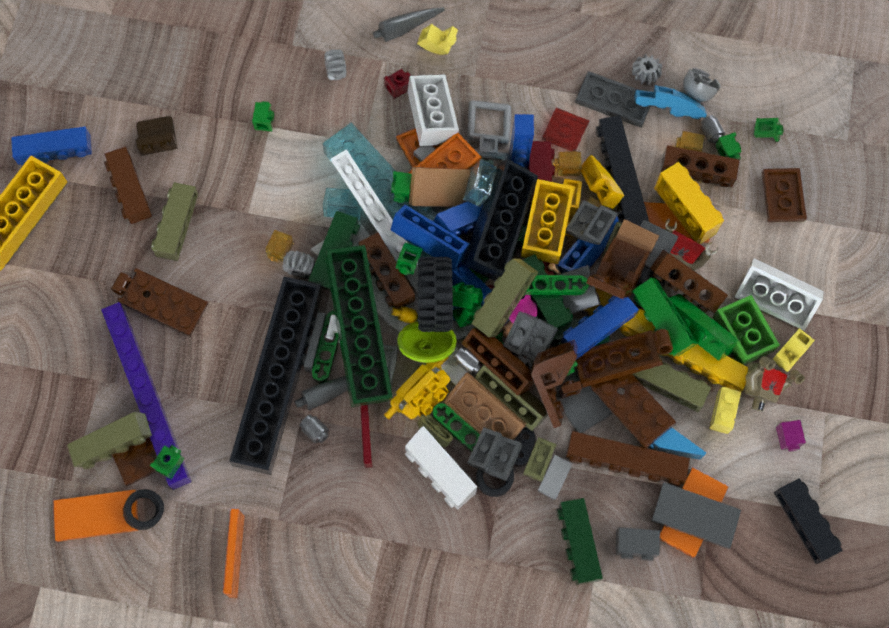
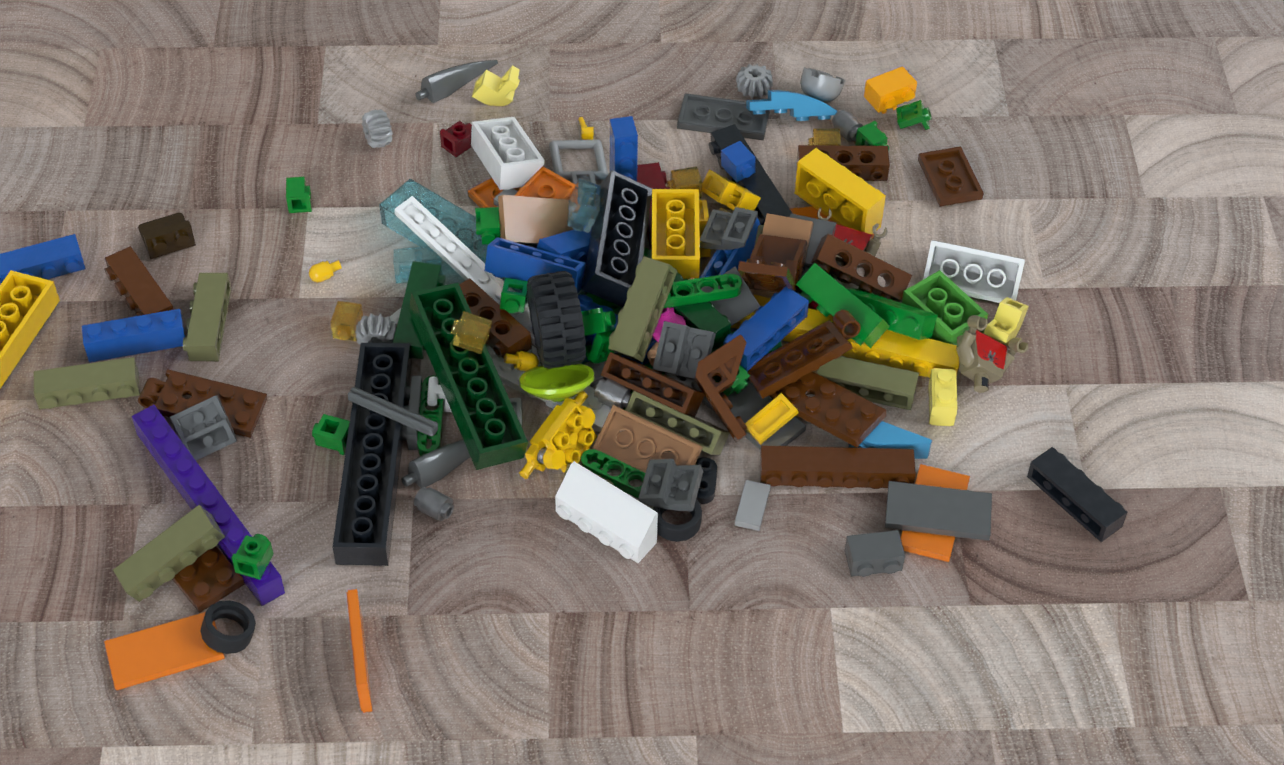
camera: 10 degrees left, 20 degrees down
(75, 266) = (86, 383): none -> olive brick
(116, 229) = (133, 335): none -> blue brick
(154, 327) = (204, 428): none -> dark grey slope
(244, 345) = (331, 433): none -> green brick
(270, 193) = (323, 270): none -> yellow cylinder
(295, 348) = (393, 411): none -> dark grey axle
(365, 296) = (471, 332): none -> clear yellow brick
(366, 439) = (502, 500): dark red tile -> none
(501, 95) = (587, 133): none -> yellow hand
(539, 459) = (728, 488): olive plate -> none
(565, 129) = (673, 152): clear red tile -> none
(570, 388) = (748, 404): reddish brown plate -> none
(580, 542) = (802, 565): dark green brick -> none
(585, 406) = (771, 418): none -> yellow tile
(614, 157) = (738, 161): none -> blue brick
(755, 104) = (890, 89): none -> light orange brick
(790, 435) = (1029, 409): magenta brick -> none

